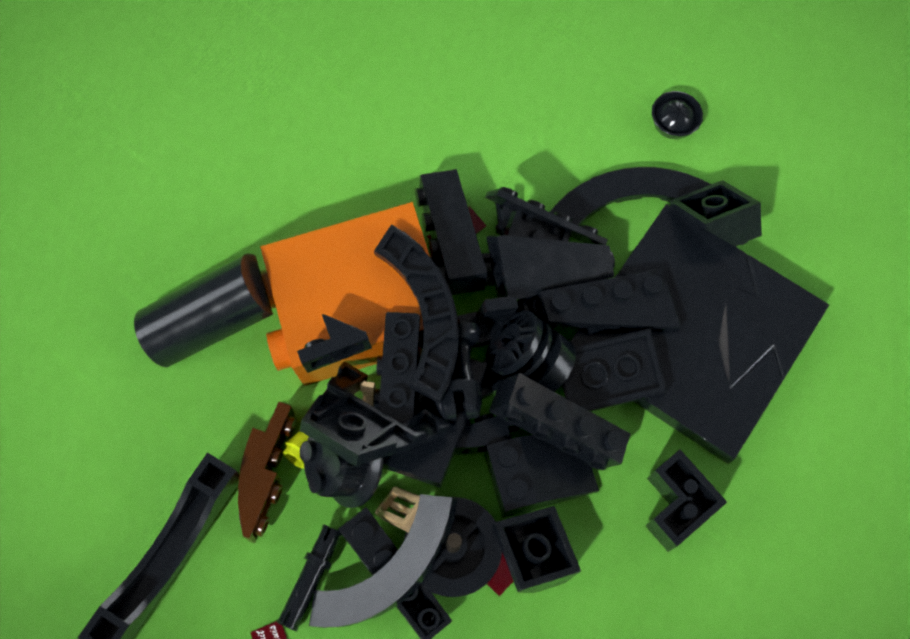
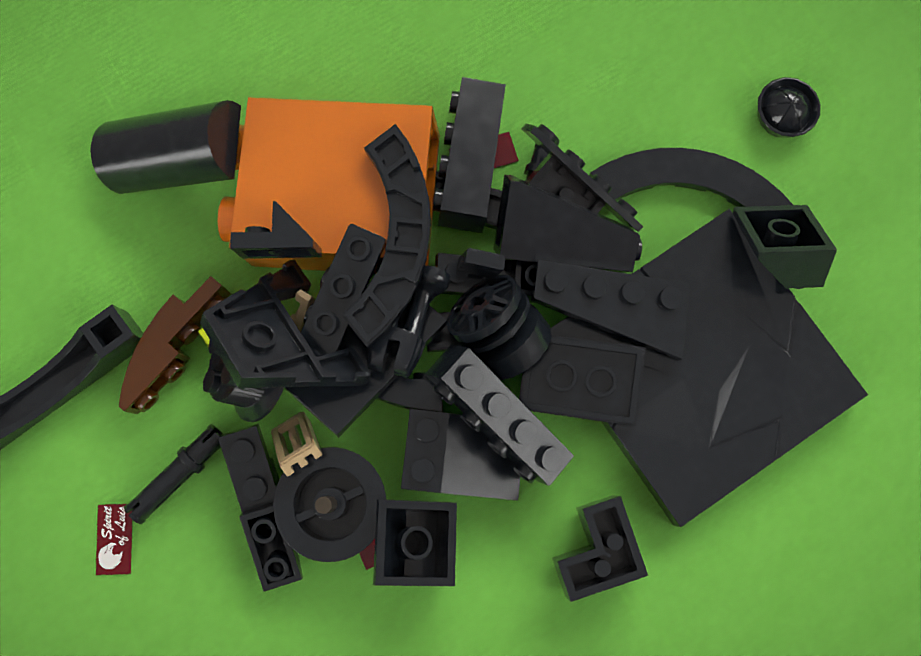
camera: 25 degrees right, 10 degrees up
(397, 577) = (259, 514): tile -> none

